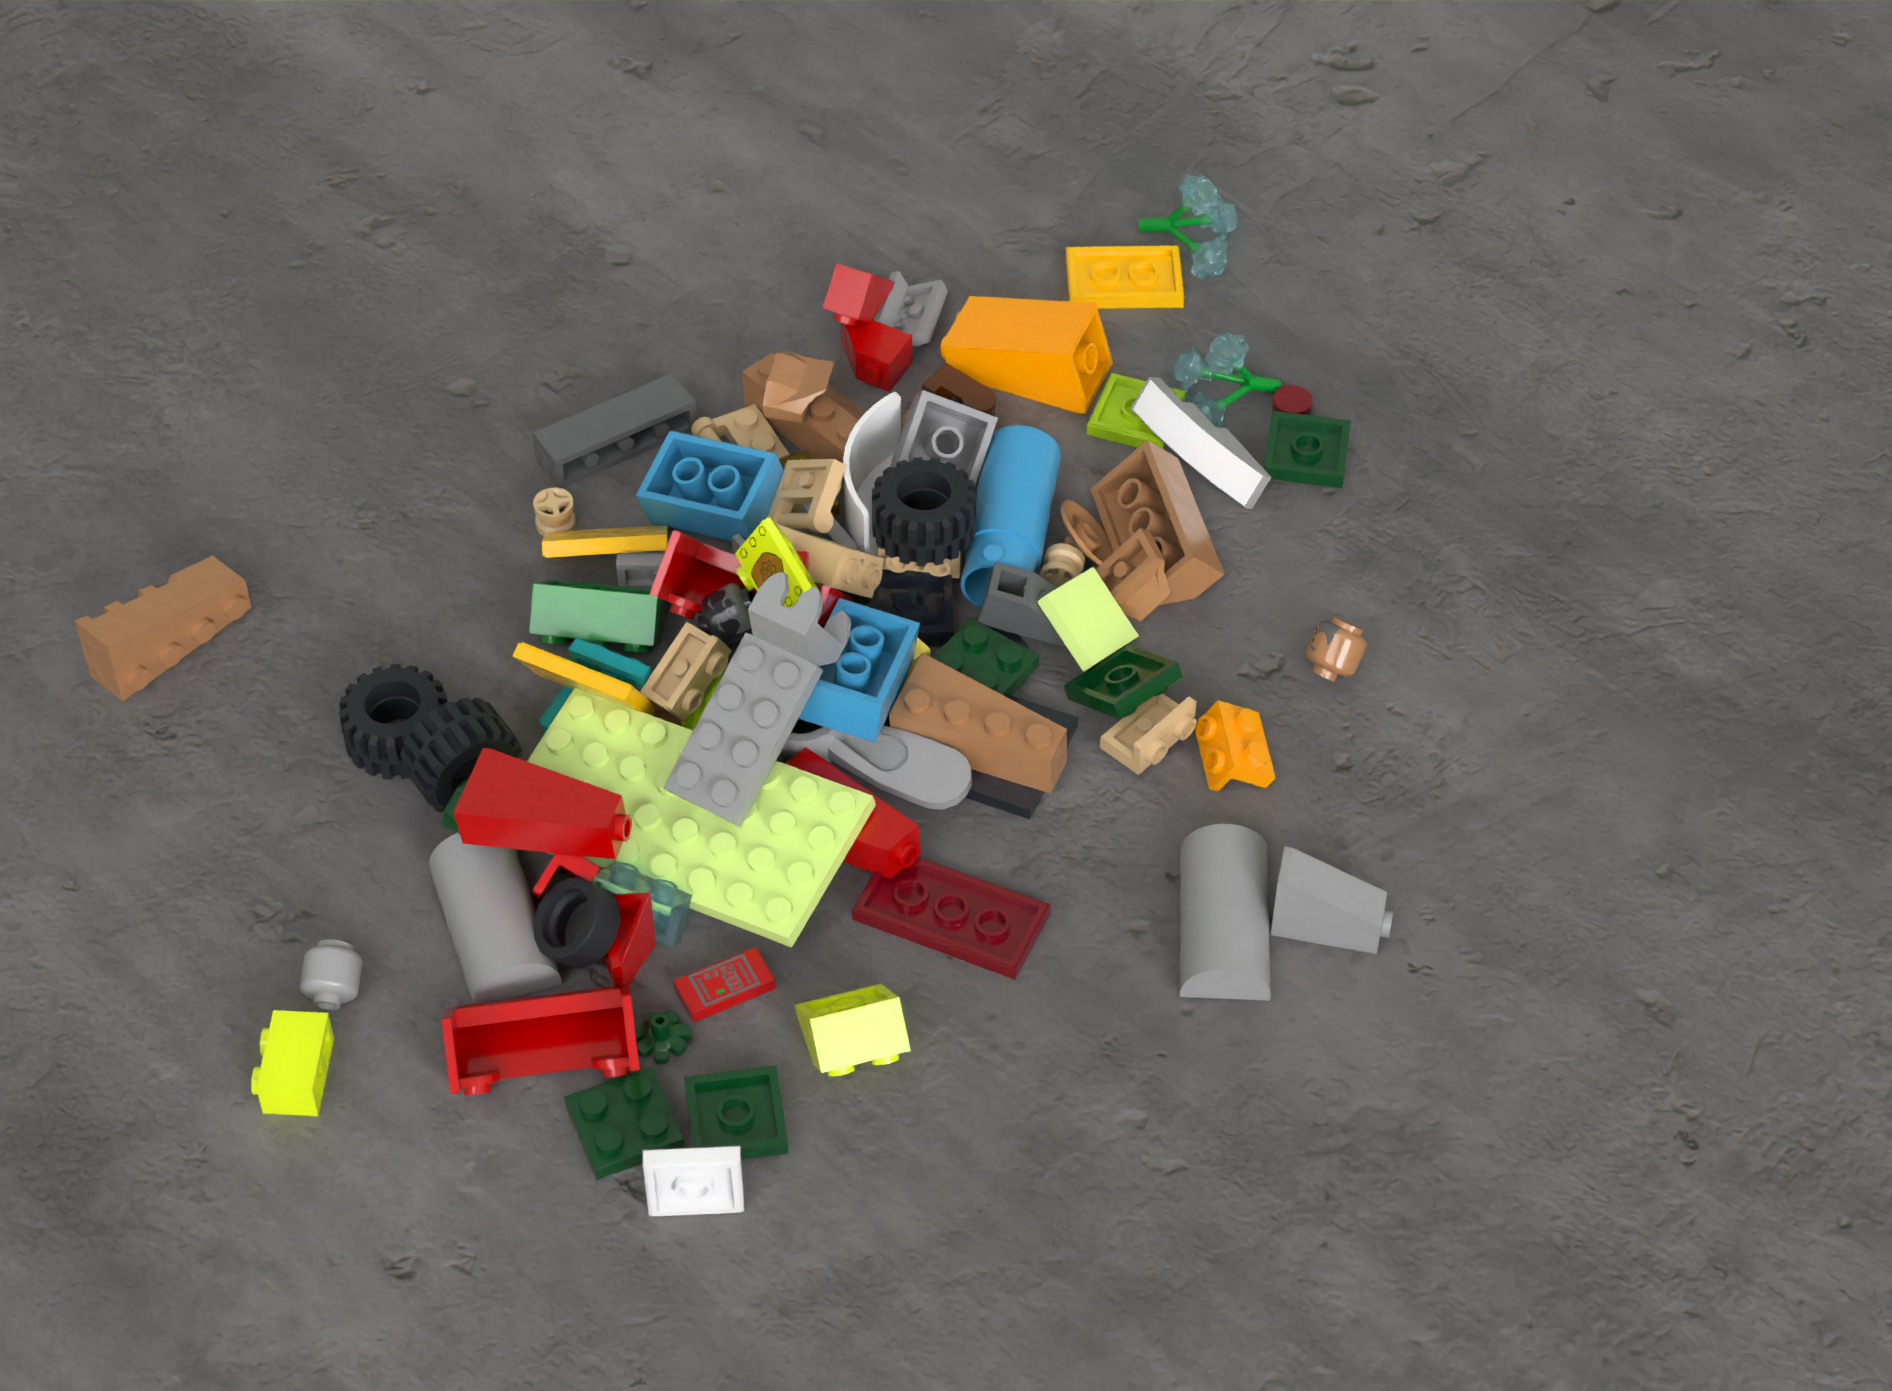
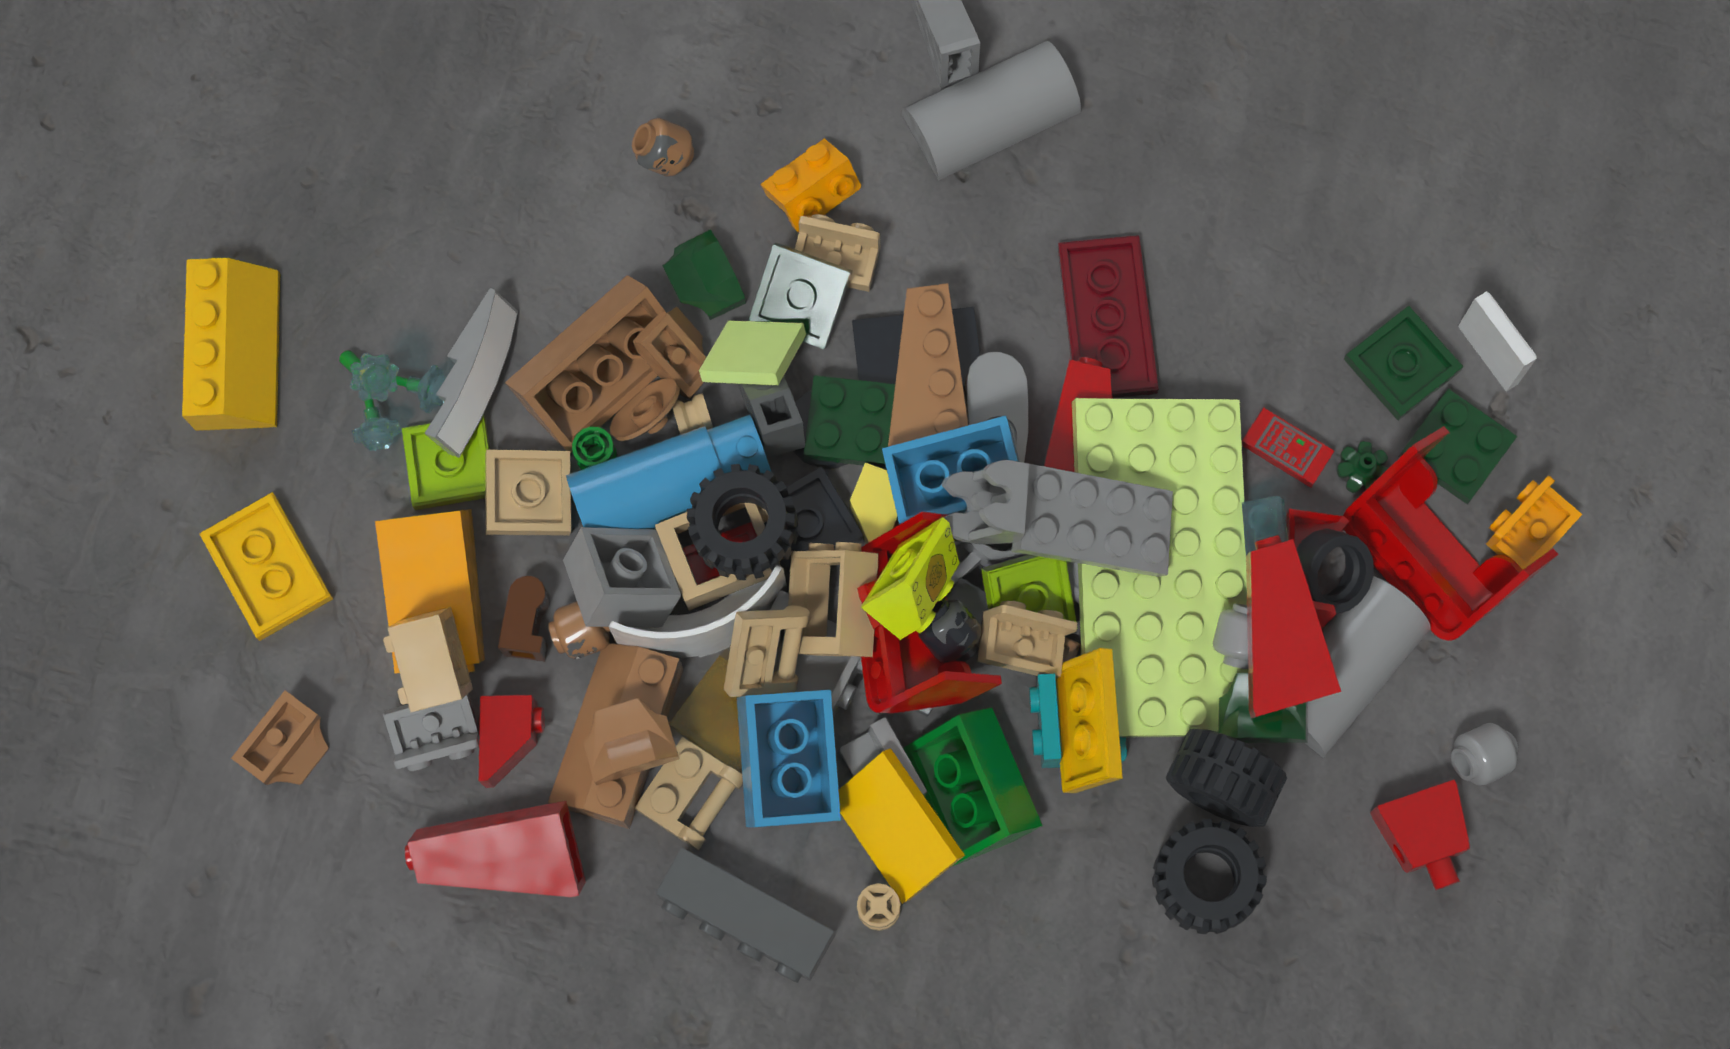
camera: 115 degrees left, 25 degrees up
(293, 1063) = (1580, 725): neon yellow brick -> none
(305, 895) = (1426, 831): none -> red torso
(499, 1131) = (1534, 525): none -> light orange bracket
(776, 309) = (506, 851): none -> slope
(853, 1029) = (1271, 322): neon yellow slope -> none
(855, 294) = (465, 764): slope -> none
(954, 291) = (429, 660): none -> tan container
(966, 228) = (283, 743): none -> medium nougat slope
(1078, 486) = (595, 454): none -> green wheel
(1081, 434) = (527, 492): none -> tan plate
(1194, 633) = (704, 276): none -> dark green slope
(1213, 212) = (161, 505): clear light blue plant -> none
(1292, 400) = (364, 332): dark red tile -> none
(1307, 449) = (422, 287): dark green plate -> none
(1333, 313) = (230, 345): none -> yellow slope

